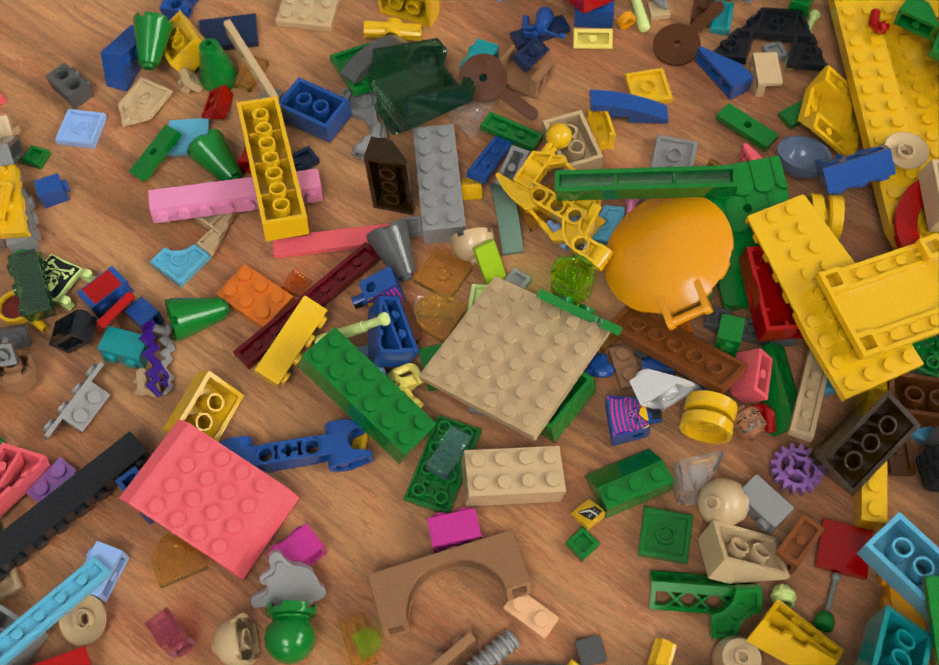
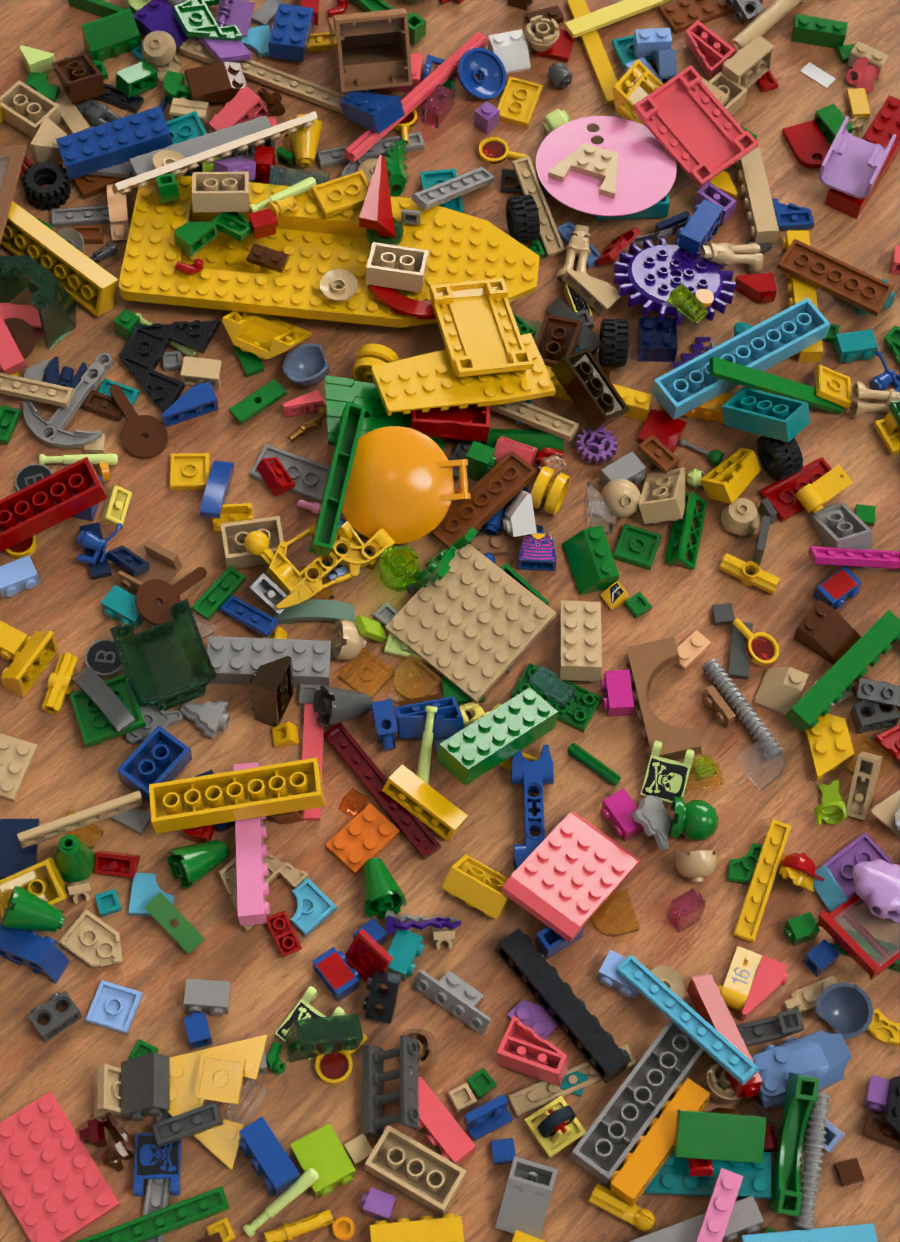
camera: 90 degrees left, 0 degrees up
(84, 192) = (207, 996): none -> light grey brick
(147, 247) = (283, 934): none -> red slope
(180, 106) = (108, 903): none -> teal tile
(347, 595) = (665, 776): none -> flag
(361, 515) = (594, 764): none -> green axle
(364, 214) = (285, 735): none -> yellow slope
(660, 154) = (275, 475): none -> red slope
(744, 602) = (709, 515): green tile -> none
(856, 169) = (347, 327): blue wedge -> none
(918, 85) = (267, 258): none -> reddish brown plate

